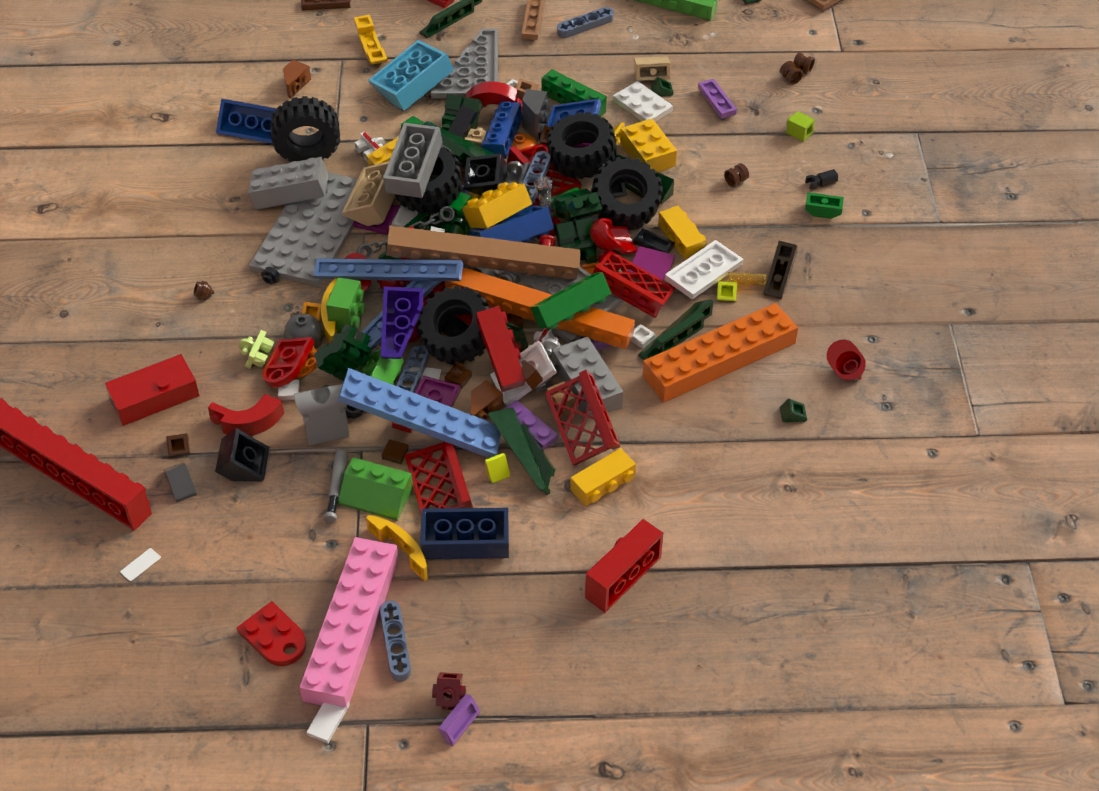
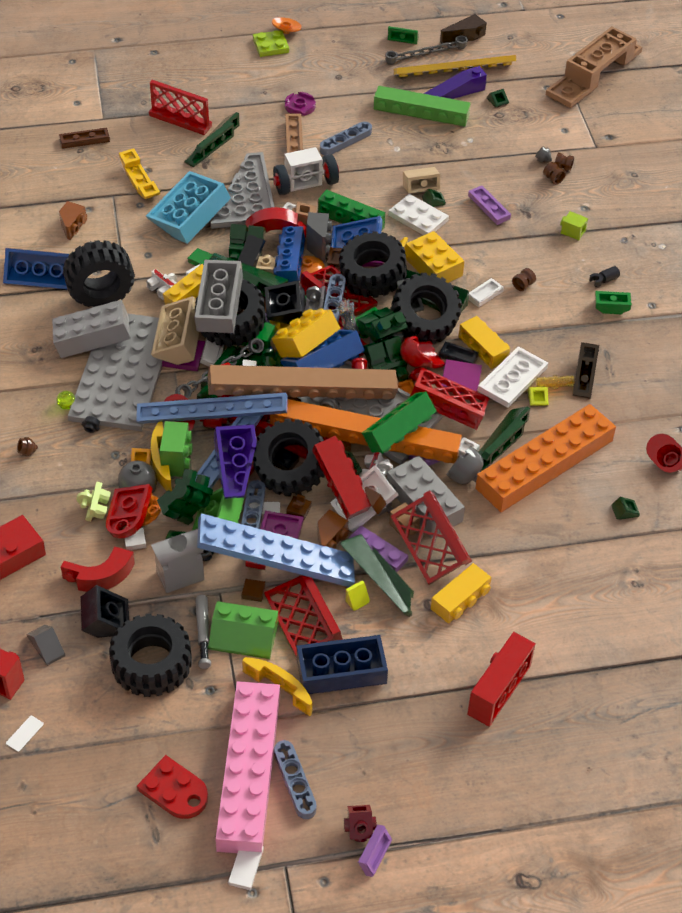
camera: 10 degrees left, 0 degrees up
(178, 445) = (36, 607): reddish brown slope -> none
(250, 249) = (65, 399): none -> clear neon green plate
(280, 523) = (155, 677): none -> black tyre
(534, 49) = (305, 170): none -> brick
(633, 353) = (466, 467): none -> dark grey cylinder
(694, 184) = (485, 292): none -> white tile
(784, 54) = (543, 155): none -> dark grey plate

